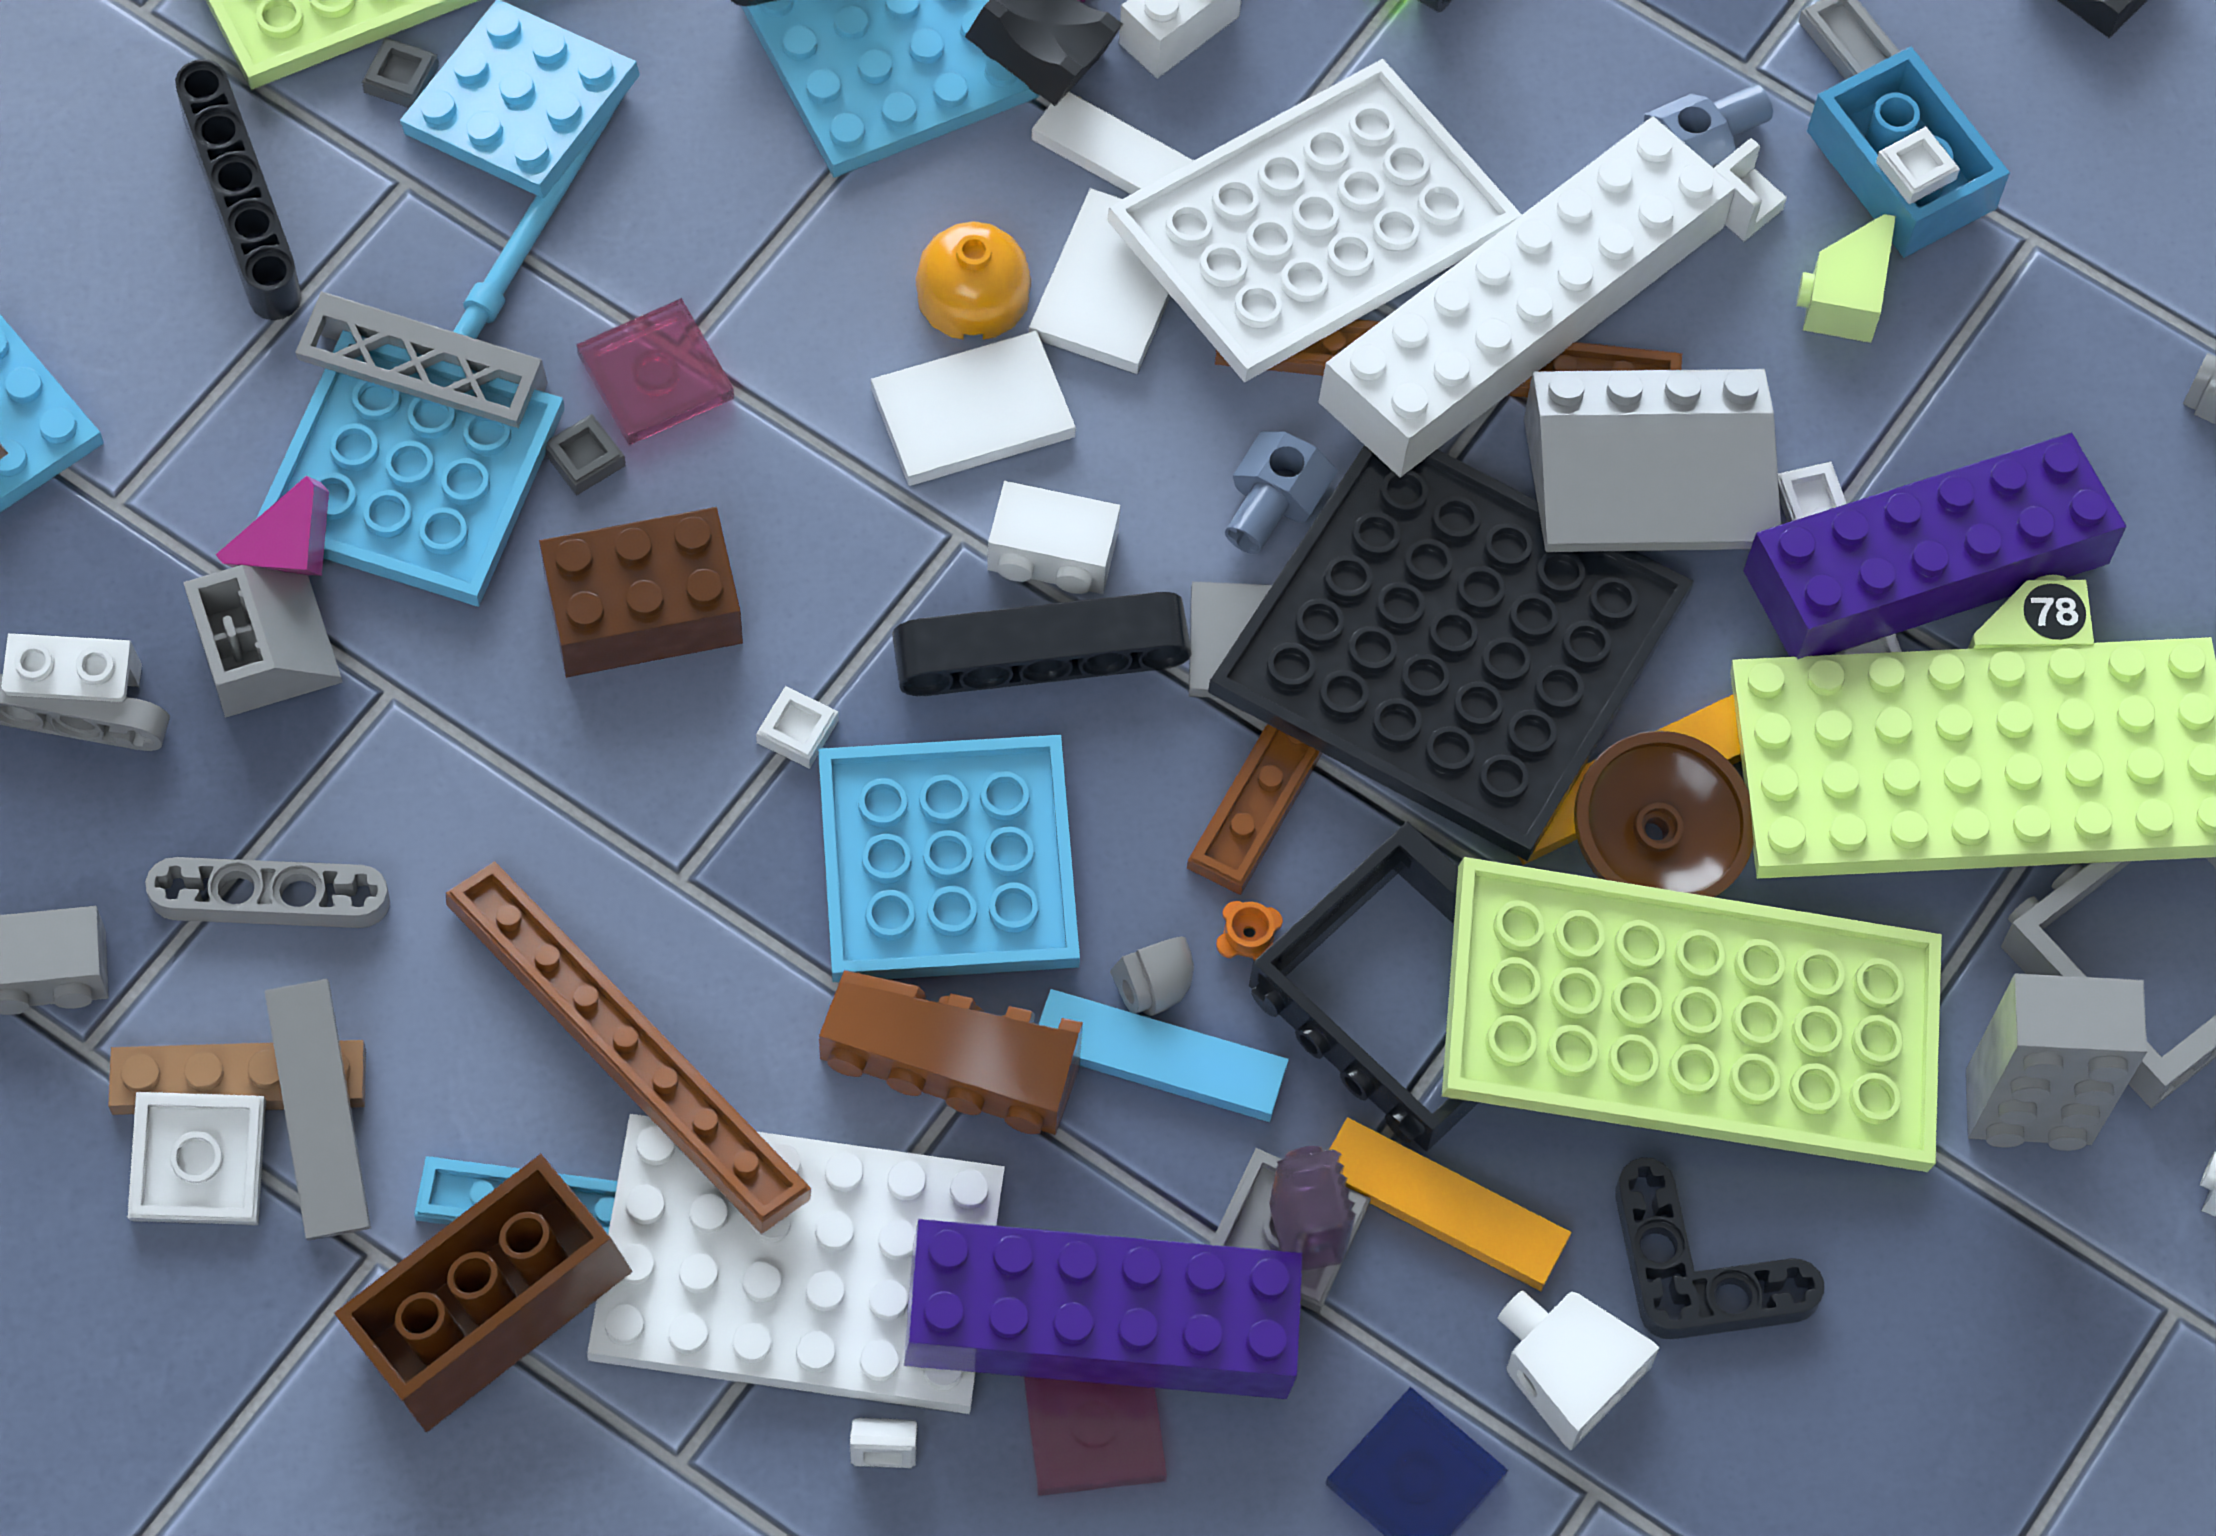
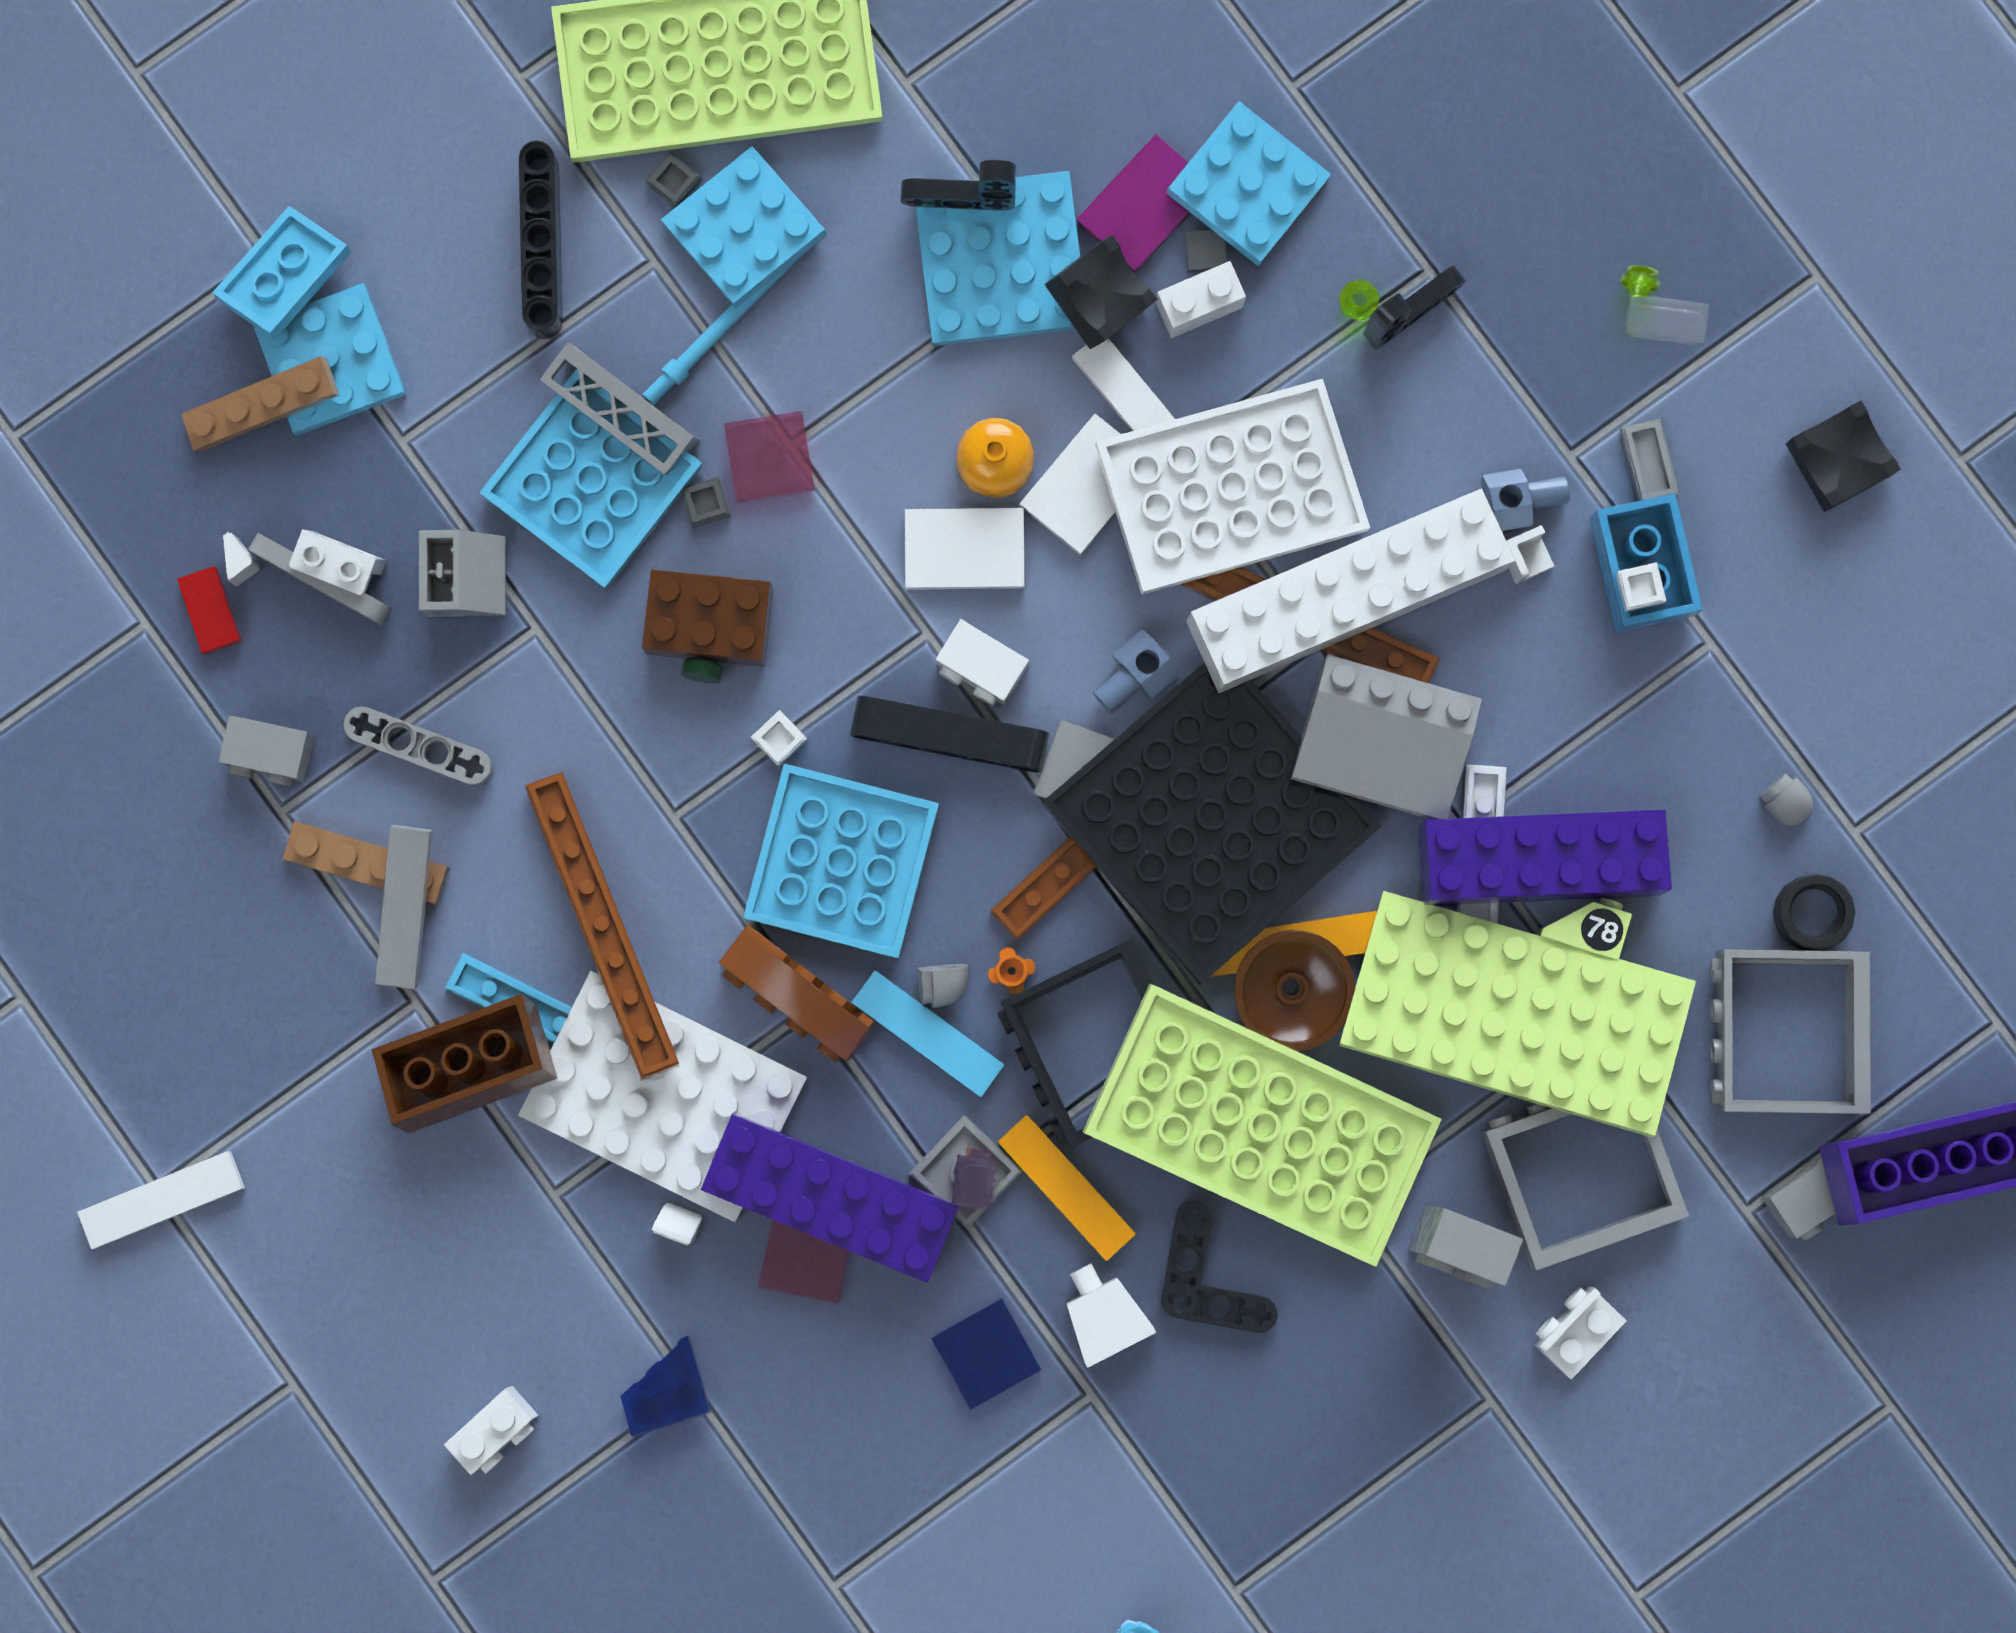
camera: 25 degrees right, 20 degrees up
(197, 1158) = (325, 911): white tile -> none
(286, 534) = (495, 516): dark pink slope -> none
(655, 665) = (702, 670): none -> dark green tile
(1849, 283) = (1569, 644): yellowish green slope -> none

